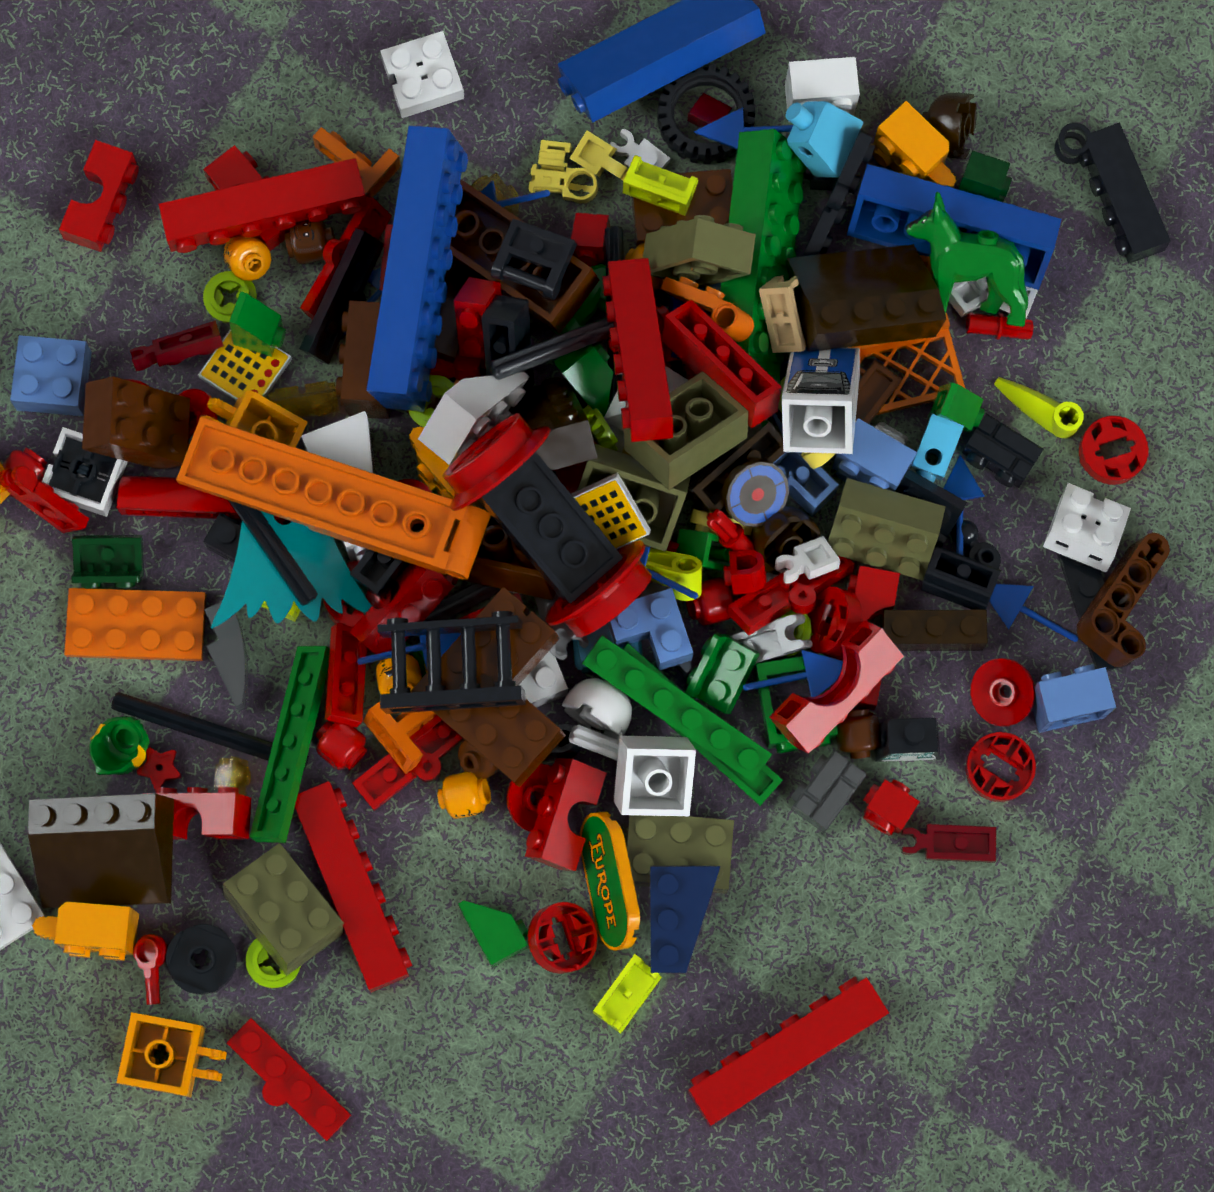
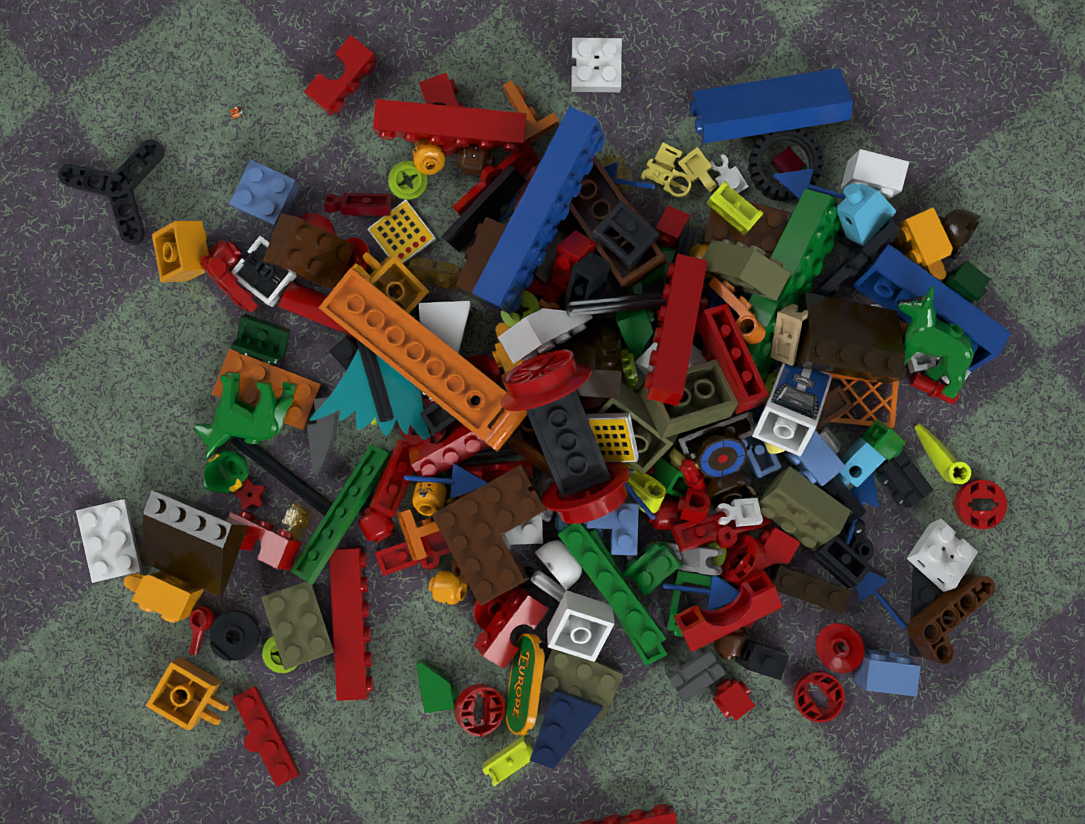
camera: 25 degrees right, 10 degrees up
(118, 669) = (242, 420): none -> green animal
(256, 326) = (416, 210): green slope -> none
(470, 692) = (470, 535): black fence -> none
(954, 843) = (768, 738): dark red plate -> none
(1120, 186) = (1057, 318): black hinge -> none

